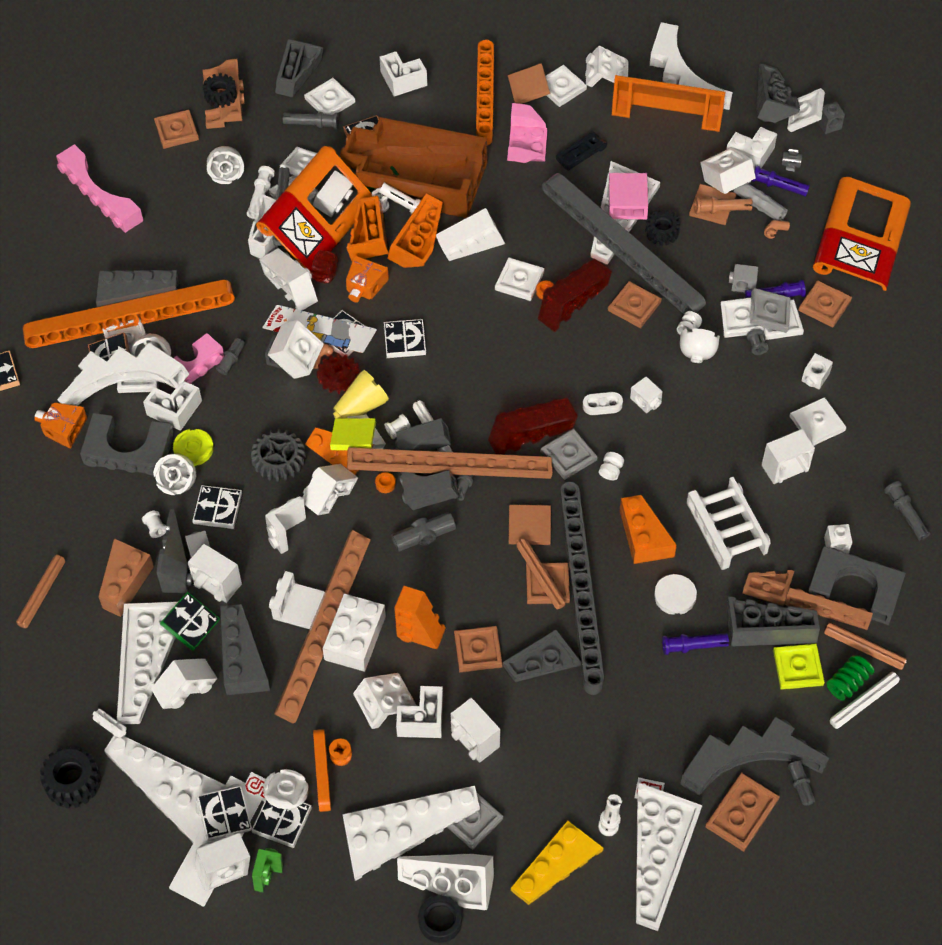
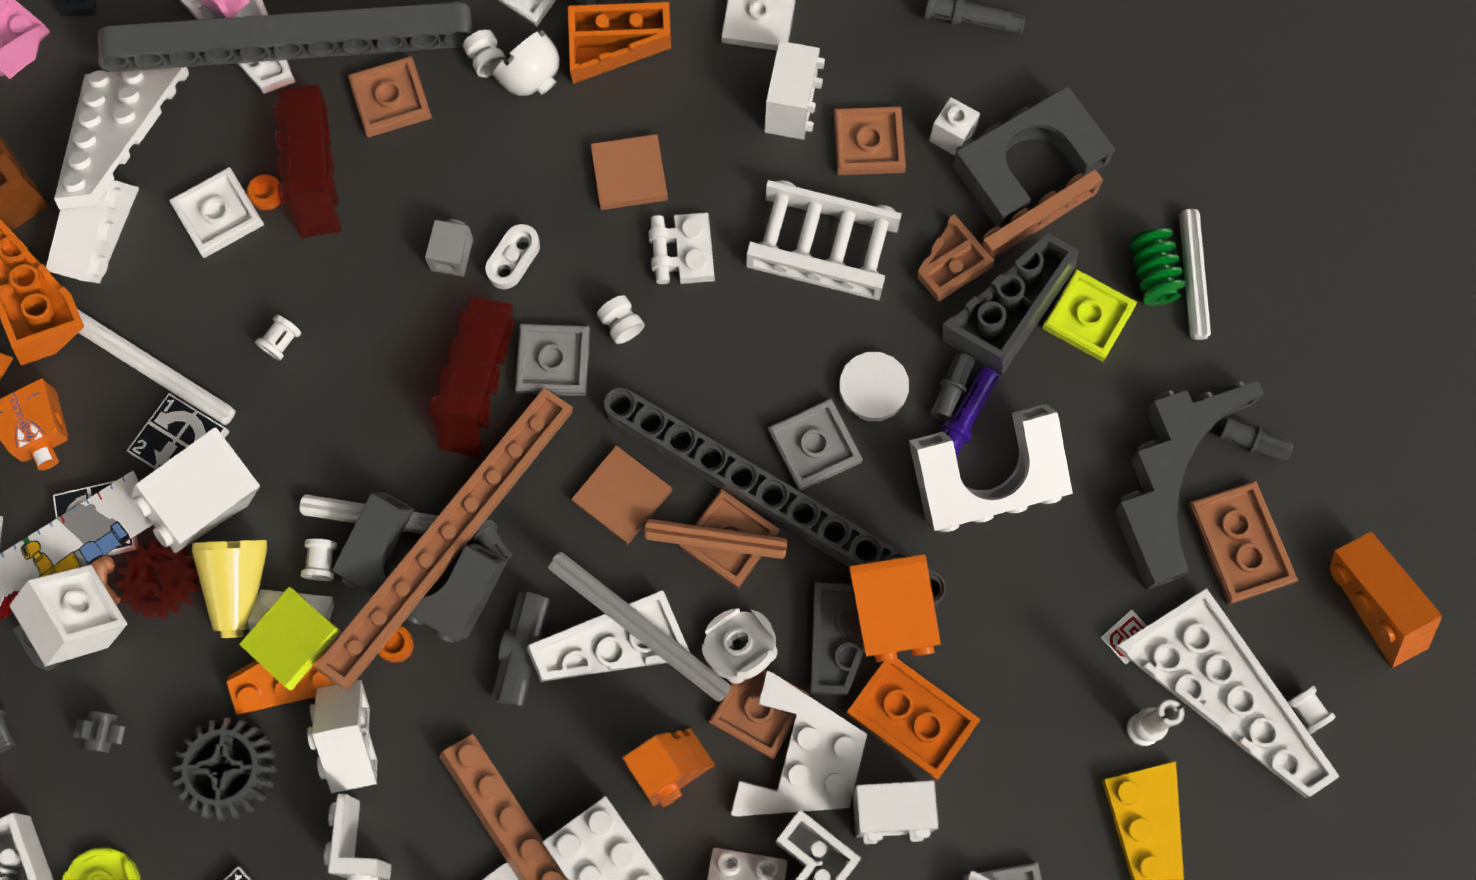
camera: 55 degrees left, 15 degrees up
(256, 398) = (99, 731): none -> dark grey gear
(386, 355) = (194, 491): none -> white slope
(428, 307) = (156, 370): none -> white axle
(460, 566) = (603, 644): none -> white wing
(472, 568) = (639, 626): none -> light grey axle
(476, 337) = (278, 337): none -> white bush
(480, 683) = (818, 762): none -> white wing
(490, 619) = (742, 663): none -> white plate
(525, 207) = (108, 120): none -> white wing
(528, 715) = (913, 717): none -> orange plate
(570, 661) = (896, 607): none -> orange slope
(583, 375) = (449, 247): none -> light grey brick
(624, 588) = (815, 445): none -> light grey tile
(644, 531) = (754, 353): orange wedge -> none
(645, 660) = (1038, 477): none -> white arch
(646, 395) = (548, 190): white brick -> none
(674, 474) = (693, 248): none -> white plate
(681, 895) = (1311, 710): none -> white bush
(687, 422) = (629, 172): none -> nougat tile
(705, 628) = (953, 386): none -> dark grey axle
(746, 368) = (615, 35): none -> orange wedge
(767, 894) = (1385, 598): none -> orange wedge
(798, 511) = (869, 140): none -> nougat tile
(865, 646) = (1122, 213): nougat axle -> none

